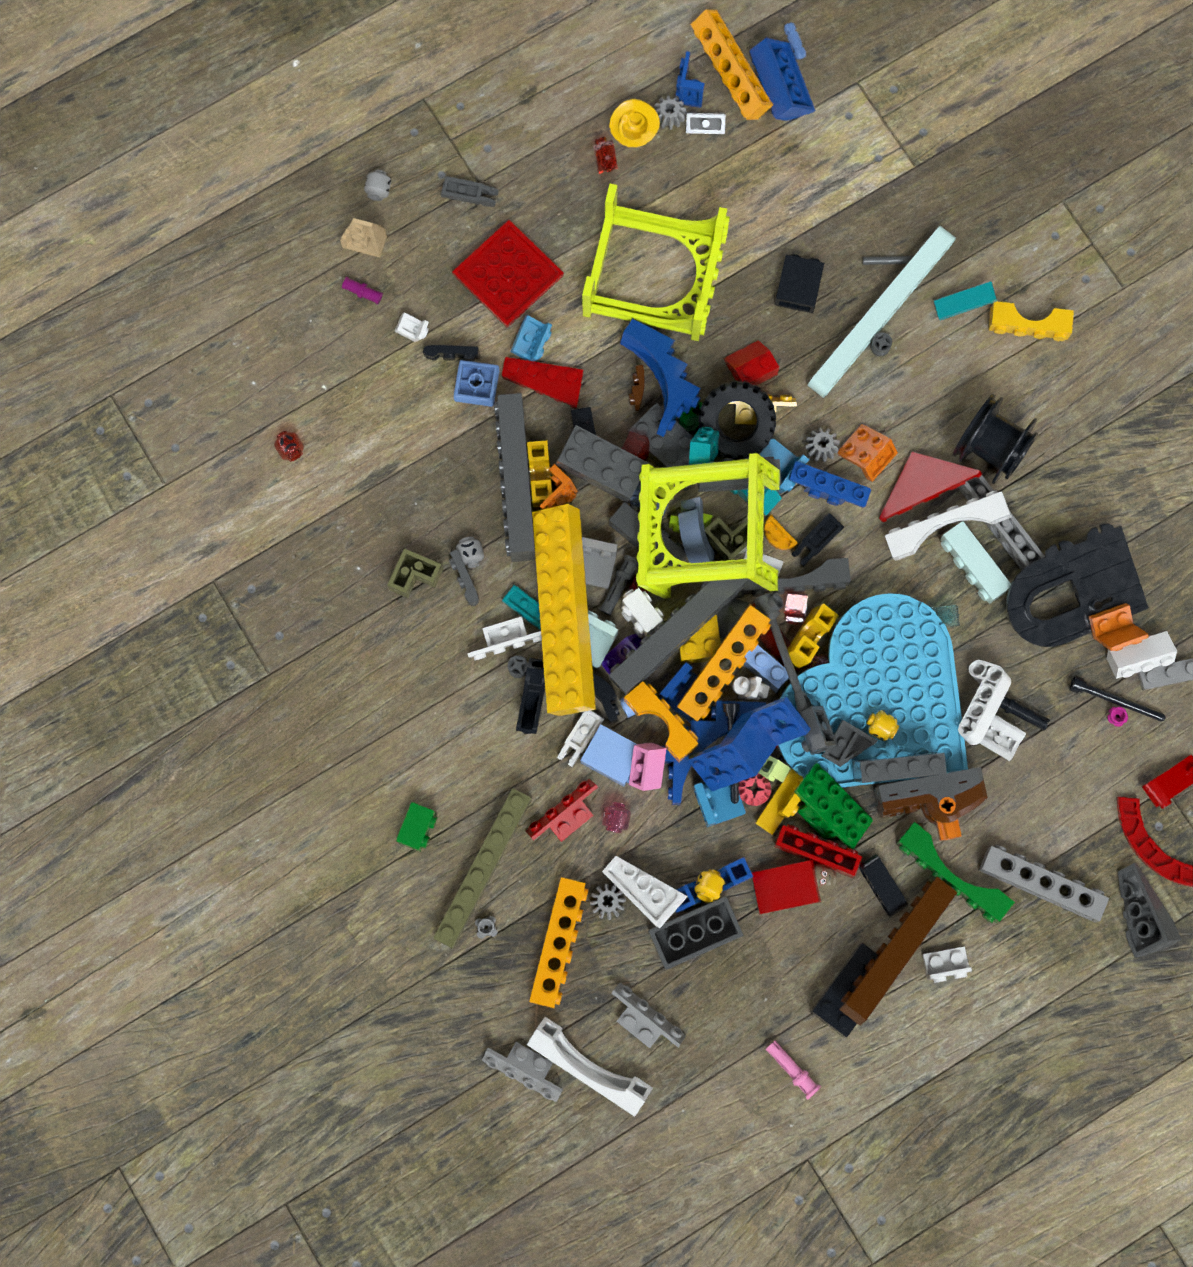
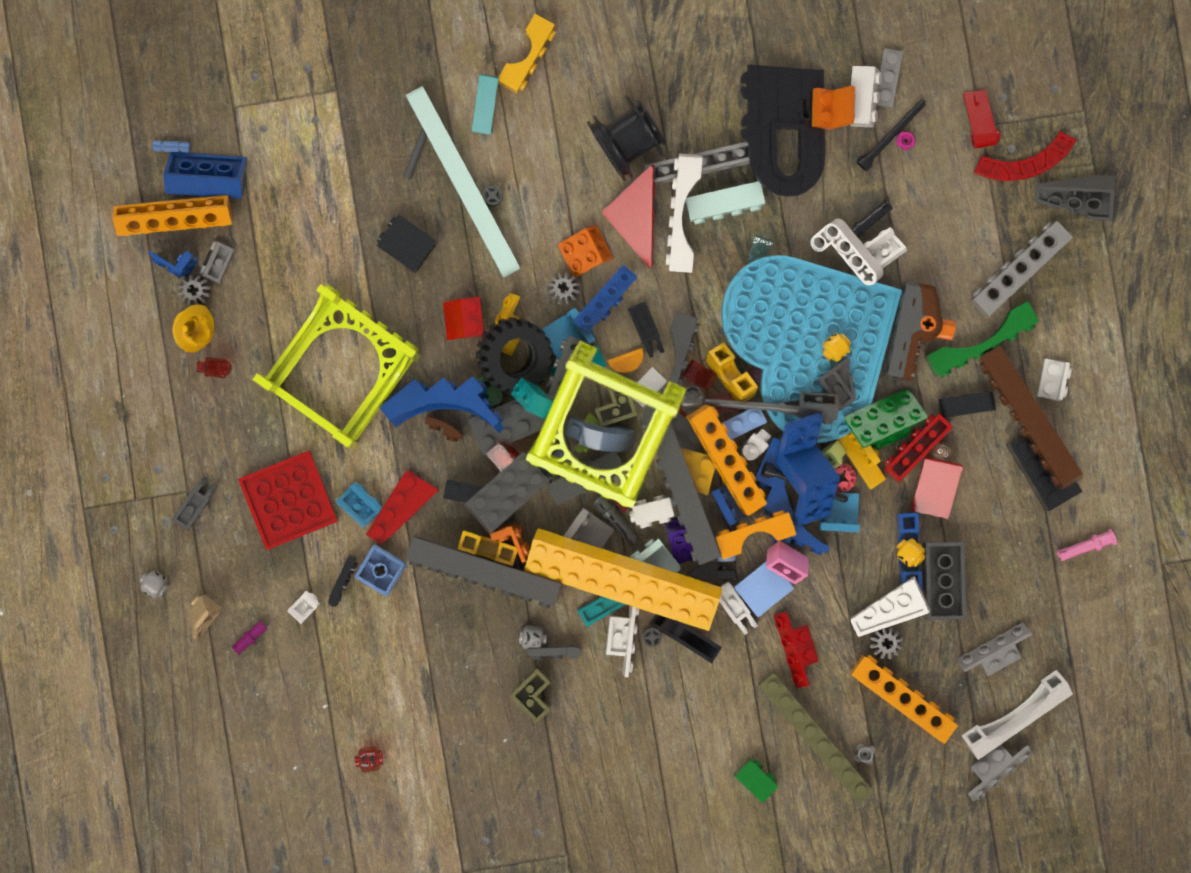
camera: 70 degrees left, 10 degrees up
(616, 818) = (818, 606): clear pink head -> none
(899, 768) = (888, 329): dark grey arch -> none

